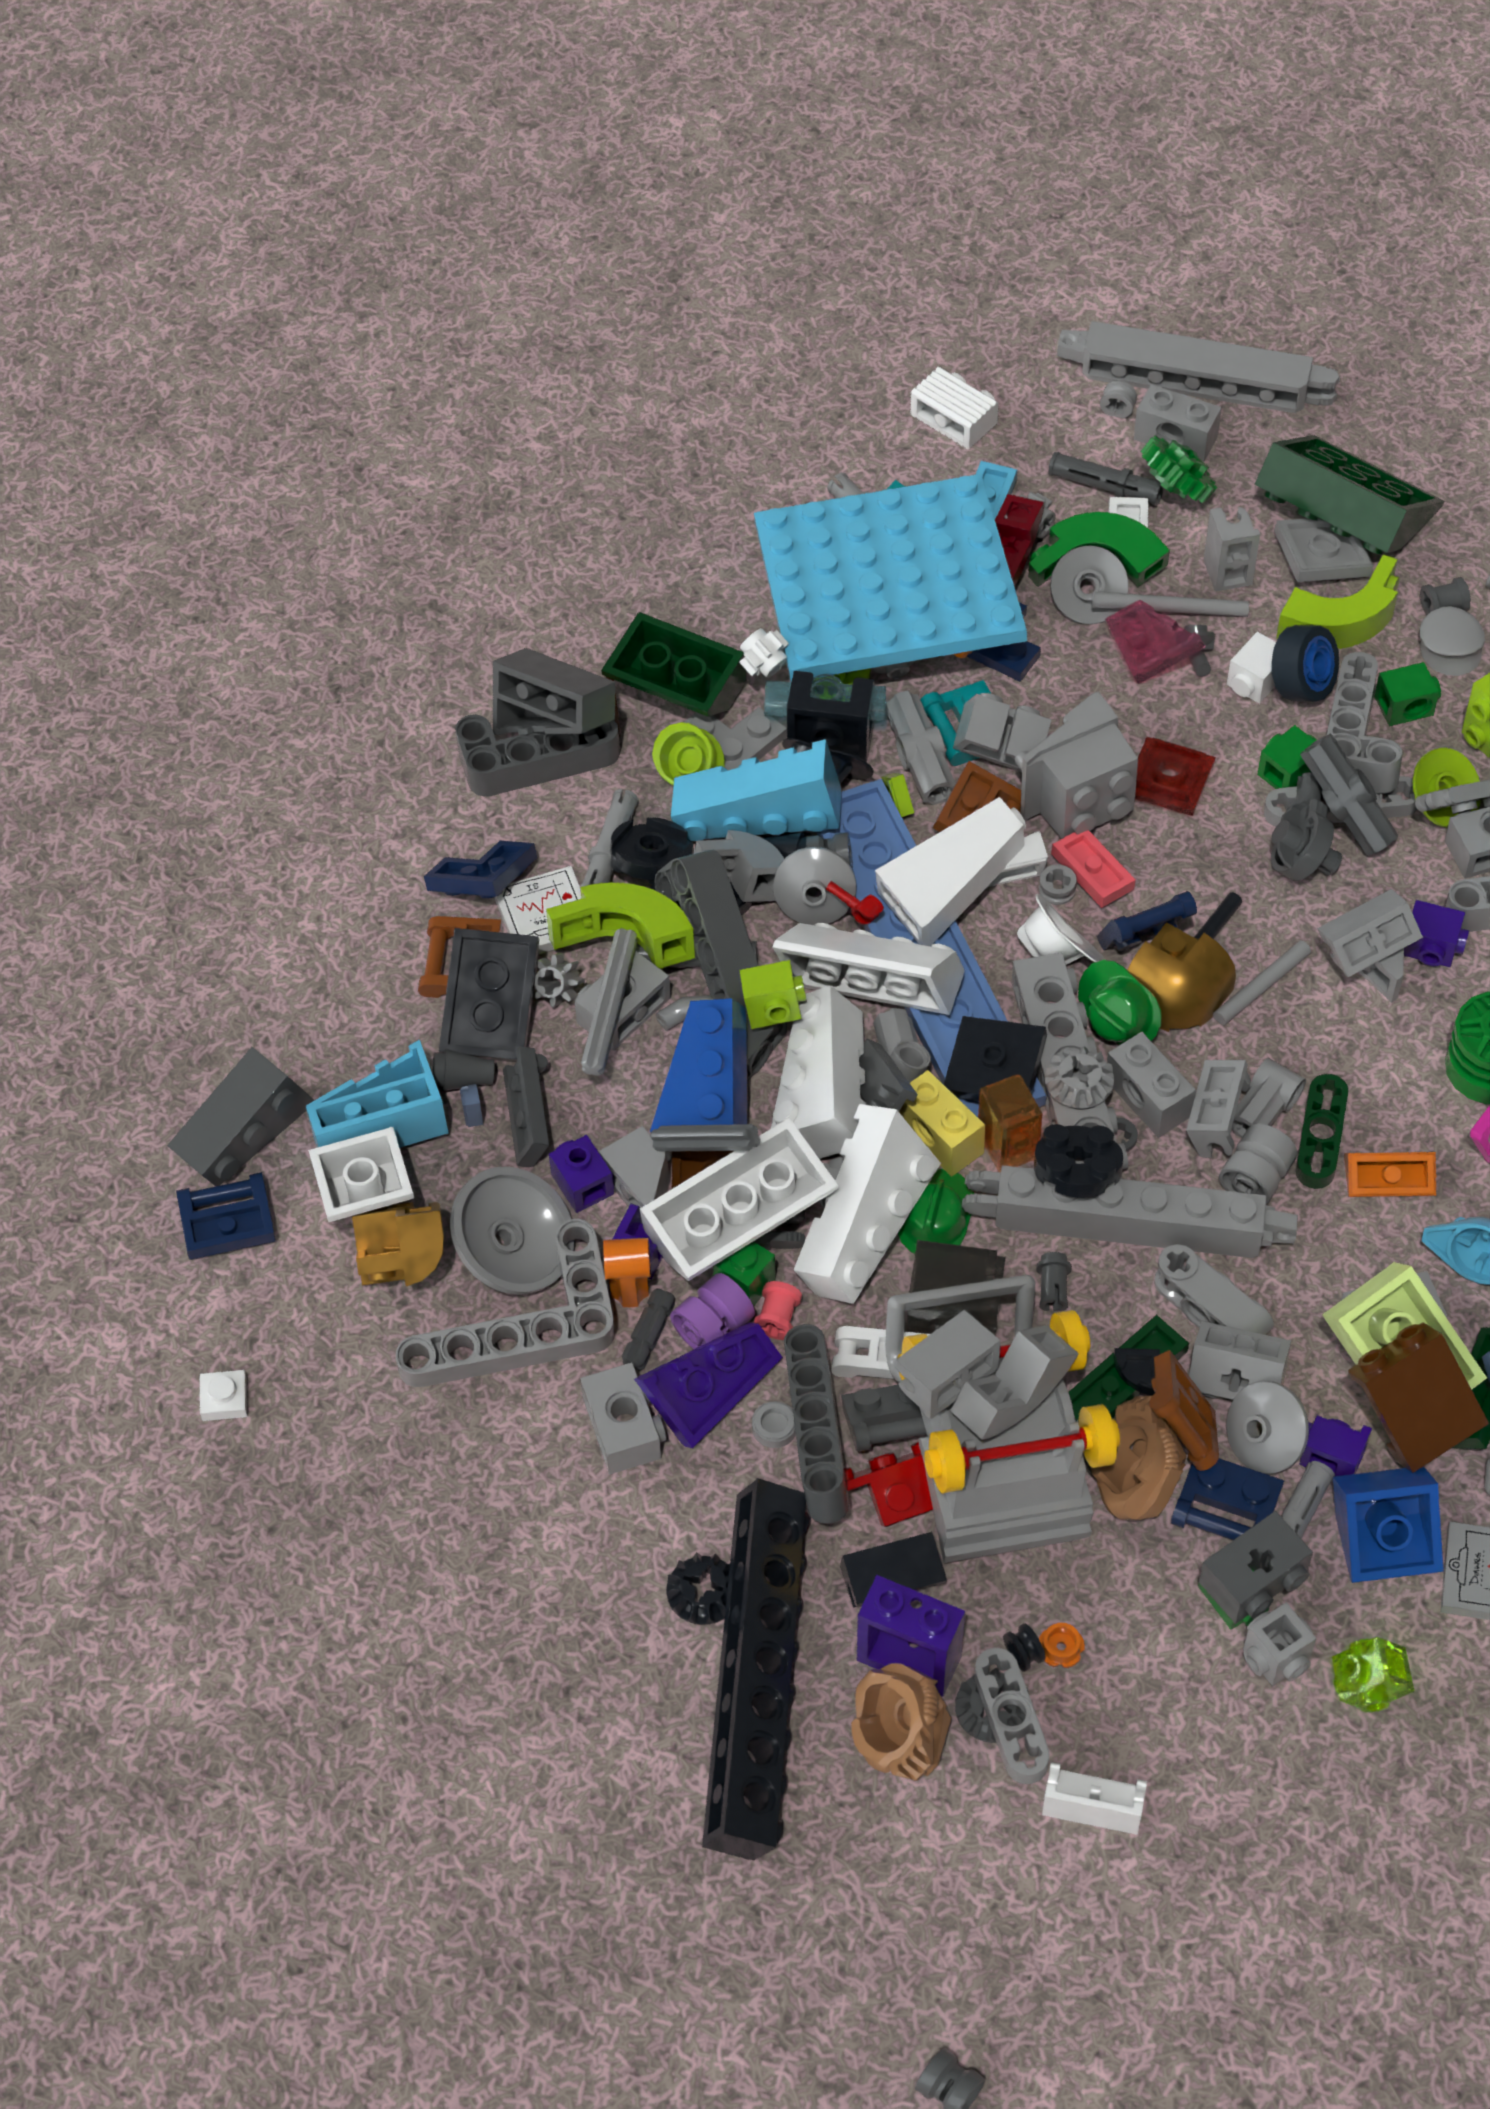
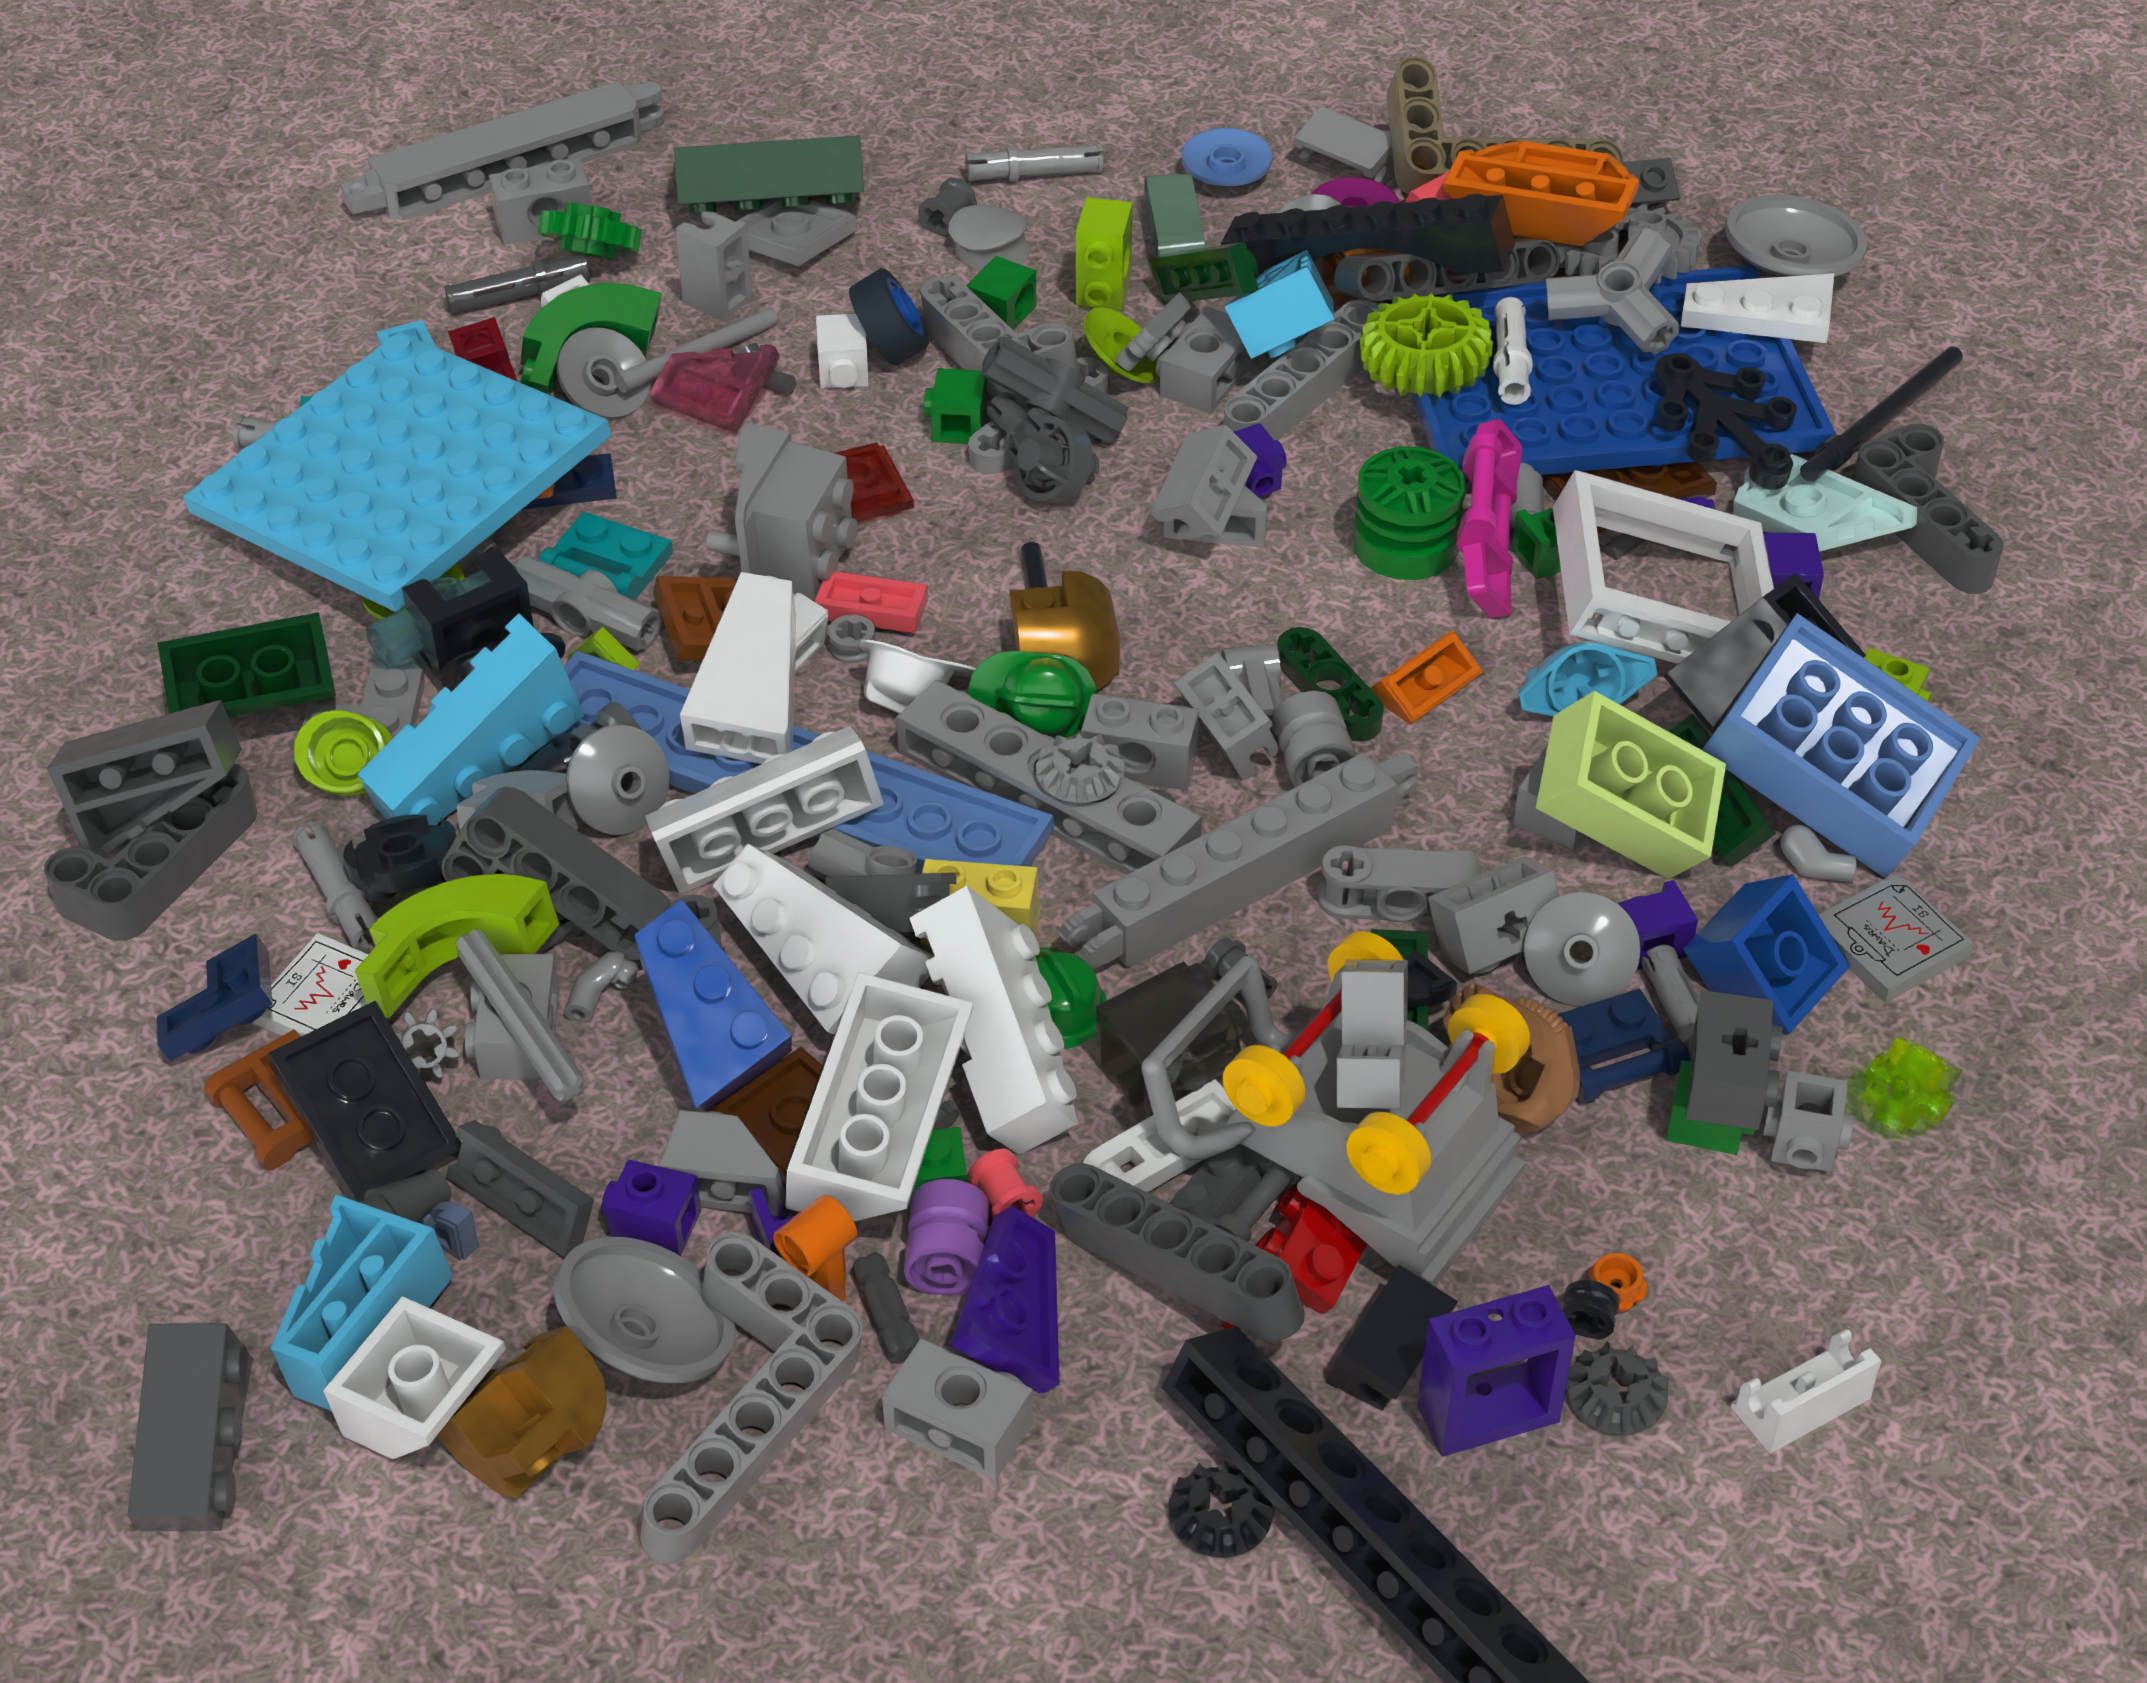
camera: 45 degrees left, 10 degrees down
(229, 1225) = (282, 1558): dark blue plate -> none
(705, 1137) = (782, 1056): dark grey axle -> none
(764, 653) = (342, 599): white gear -> none
(772, 994) = (703, 878): lime brick -> none
(773, 1424) = (1115, 1300): light grey tile -> none
(862, 911) = (693, 767): red hand -> none
(900, 1721) = (1568, 1463): medium nougat helmet -> none
(946, 1360) = (1302, 1052): light grey hinge -> none
(954, 407) = (296, 305): white brick -> none
(992, 1052) = (980, 809): black plate -> none
(997, 731) = (661, 534): light grey piece -> none
(1010, 1122) = (1062, 843): clear orange panel -> none
(1034, 1742) = (1668, 1398): light grey beam -> none
(1063, 1144) = (1167, 831): black plate -> none
(1120, 391) = (450, 205): light grey bush -> none
(1126, 932) = (987, 605): dark blue plate -> none
(1185, 1410) = (1496, 972): dark orange plate -> none
(1262, 982) = (1134, 602): light grey bar -> none
(1351, 617) = (887, 248): lime arch -> none
(1419, 1395) = (1698, 808): reddish brown panel -> none

